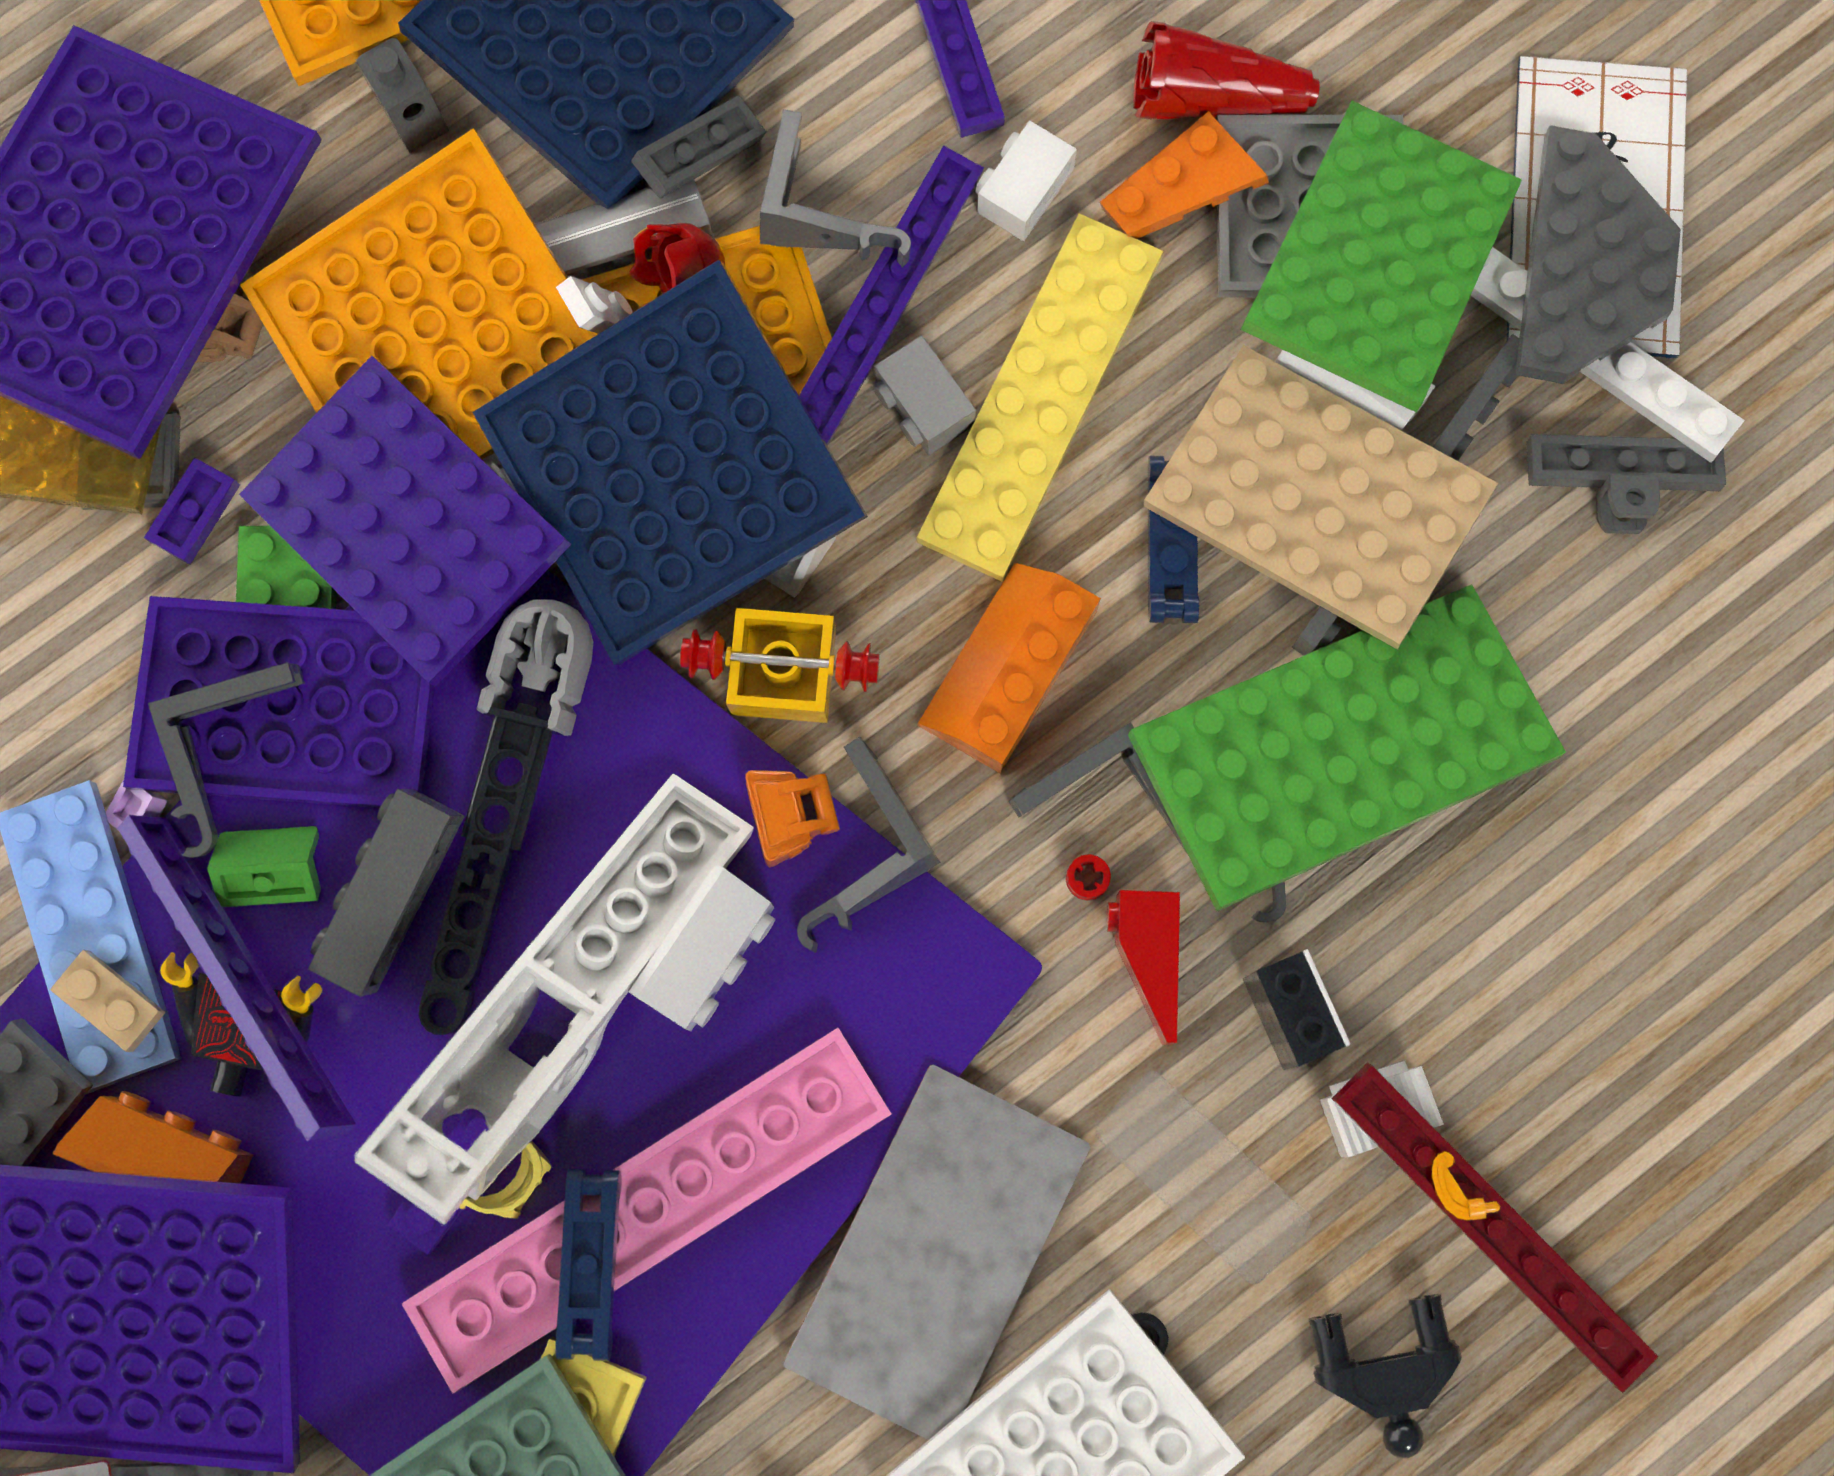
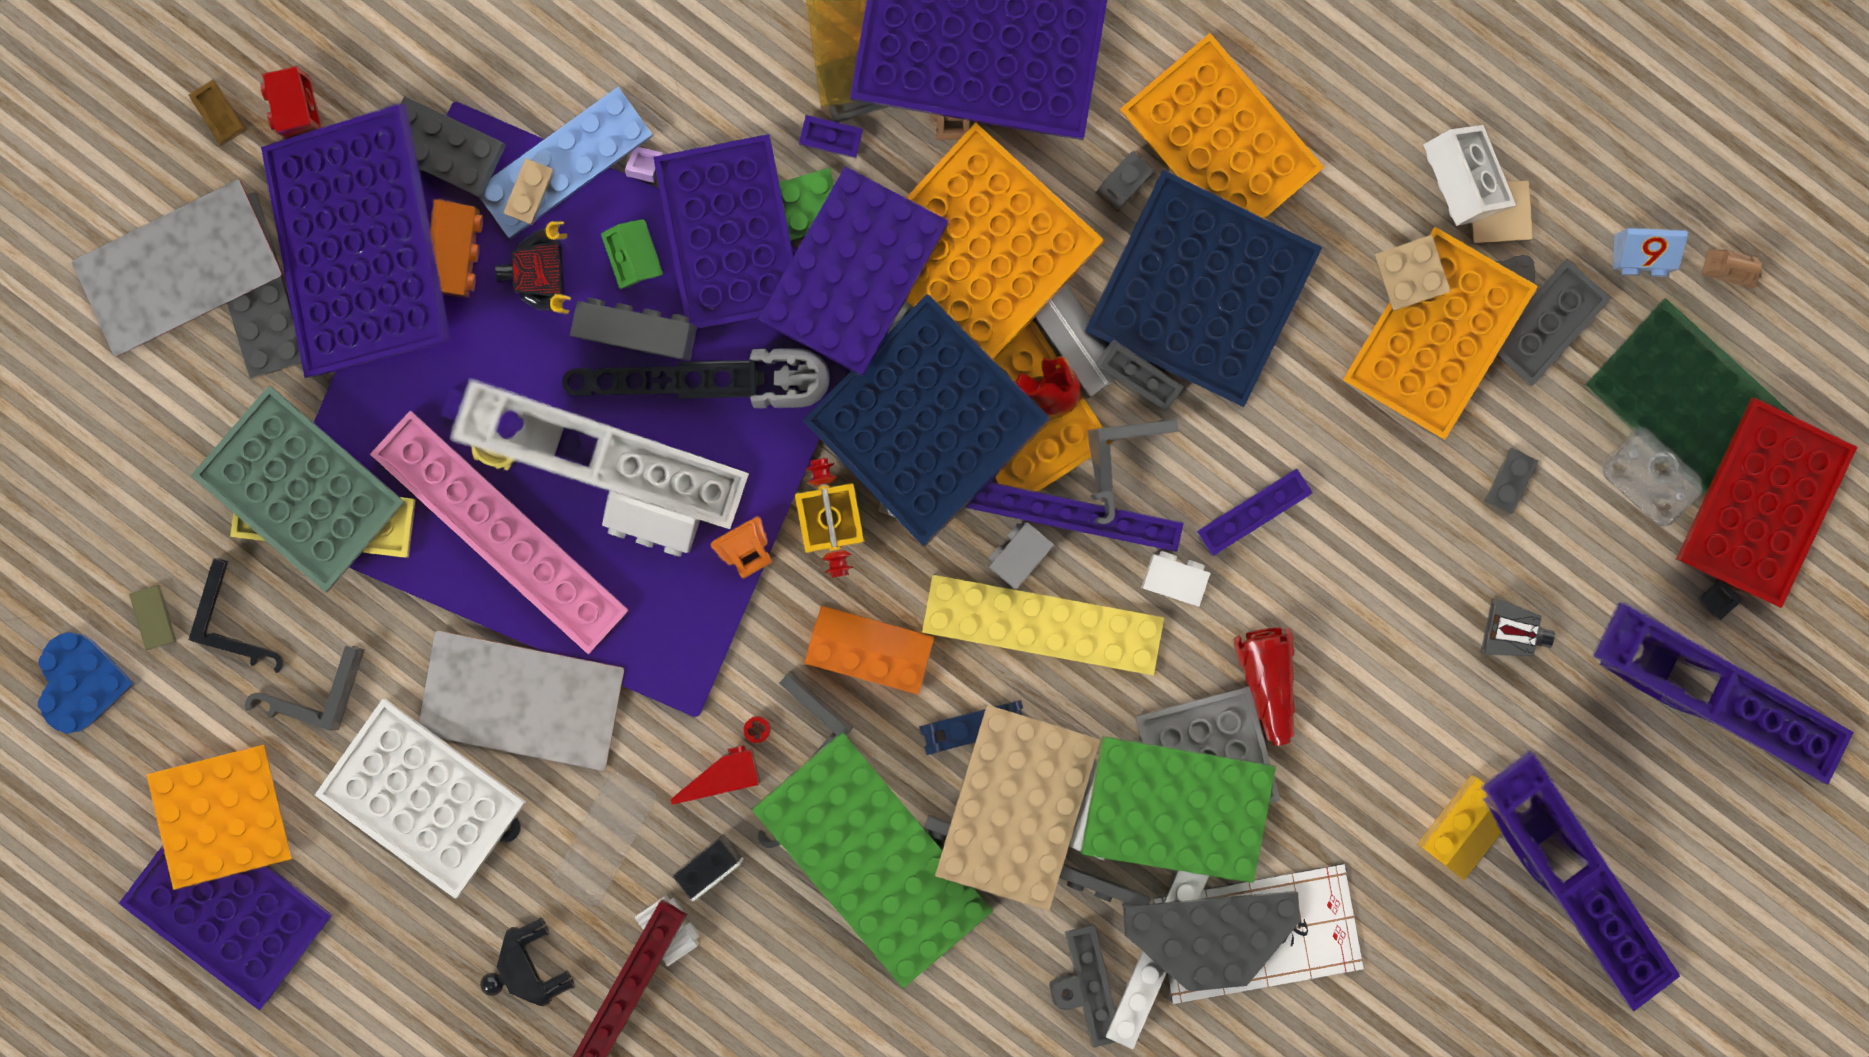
camera: 75 degrees right, 10 degrees up
(179, 744) = (698, 175): dark grey hinge -> none
(237, 979) = (561, 263): dark purple plate -> none
(588, 1265) = (458, 509): dark blue plate -> none
(593, 306) = (1012, 348): white plate -> none
(889, 874) = (753, 617): dark grey hinge -> none
(1188, 174) = (1202, 677): orange wing -> none
(1452, 1195) = (626, 979): light orange piece -> none

